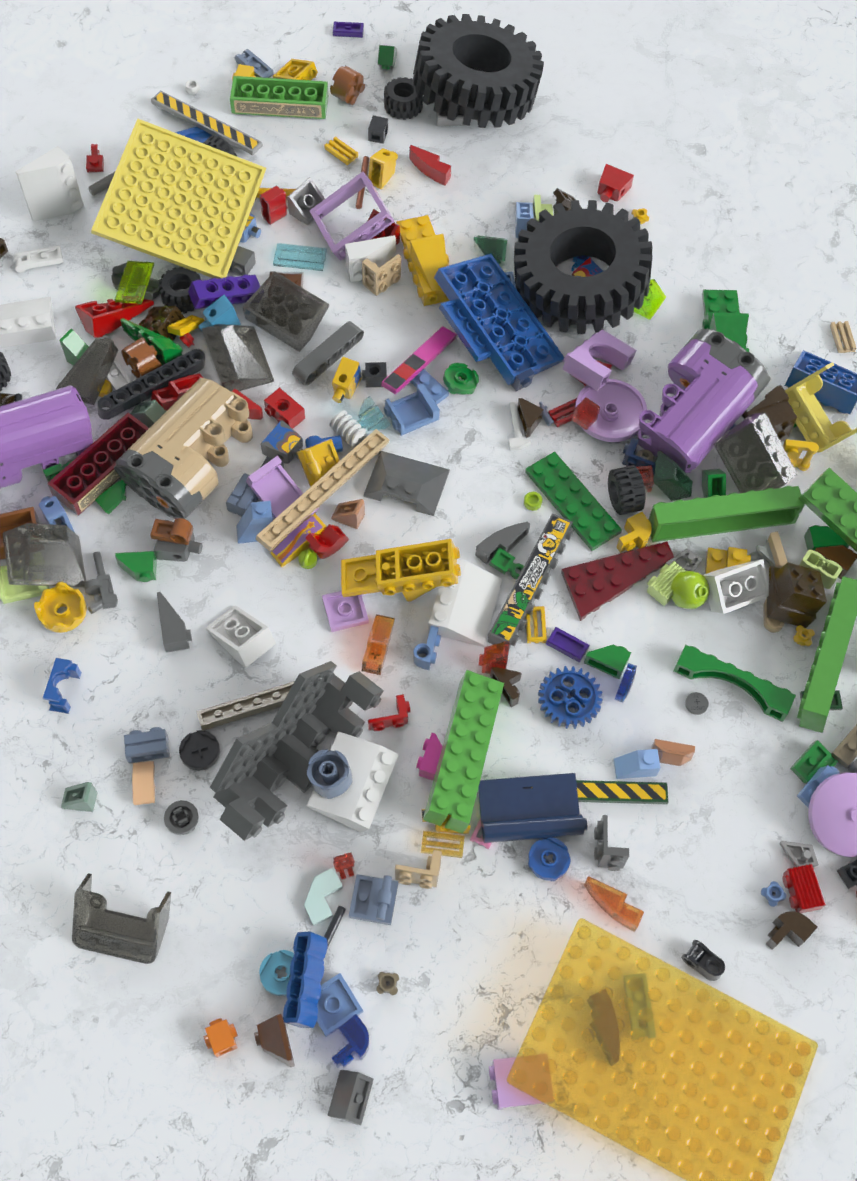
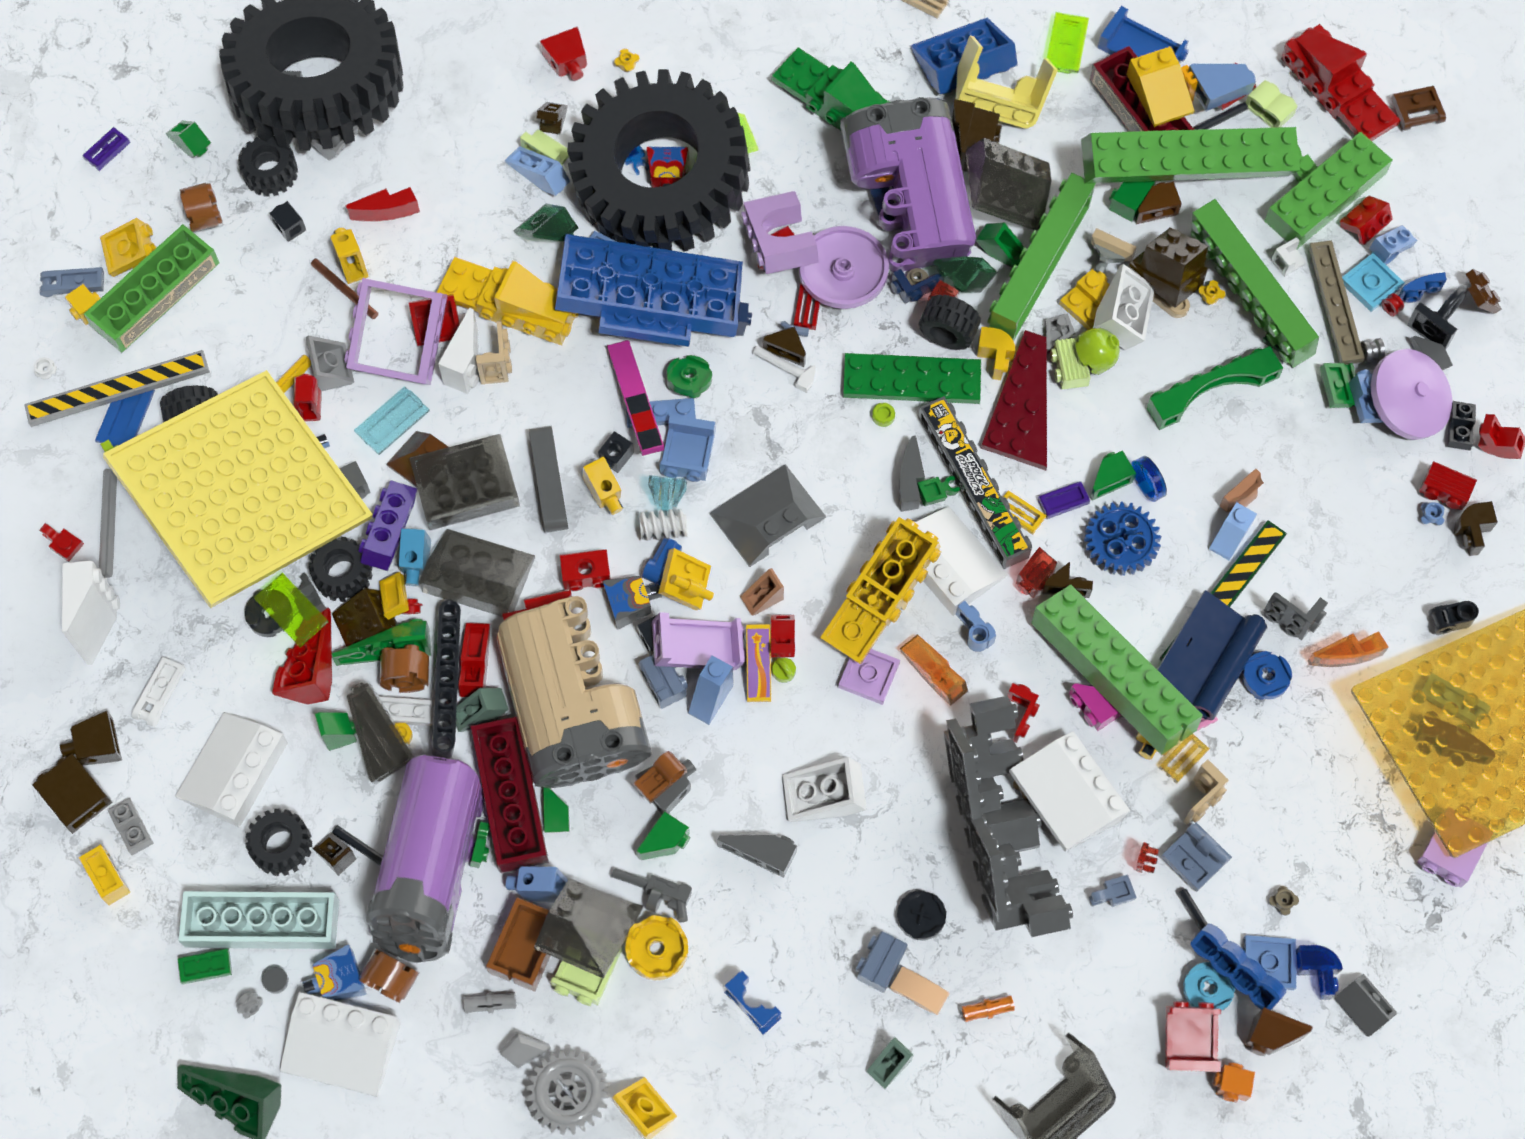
camera: 50 degrees left, 5 degrees up
(161, 834) = (988, 1008): none -> orange pin
(181, 817) = (986, 977): dark grey piece -> none
(233, 985) = (1192, 1037): none -> panel
(243, 707) = (913, 826): dark tan plate -> none
(306, 863) = (1116, 891): none -> sand blue plate
(321, 490) = (725, 598): tan plate -> none
(322, 886) = (1161, 912): light aqua tile -> none
(329, 784) = (1044, 804): sand blue brick -> none
(343, 150) = (280, 275): yellow tile -> none
(586, 413) = (837, 292): clear red panel -> none
(696, 703) = (1208, 435): dark grey piece -> none
(794, 449) = (1031, 140): yellow plate -> none
(800, 853) = (1413, 463): light grey piece -> none
(828, 569) = (1155, 223): yellowish green brick -> none

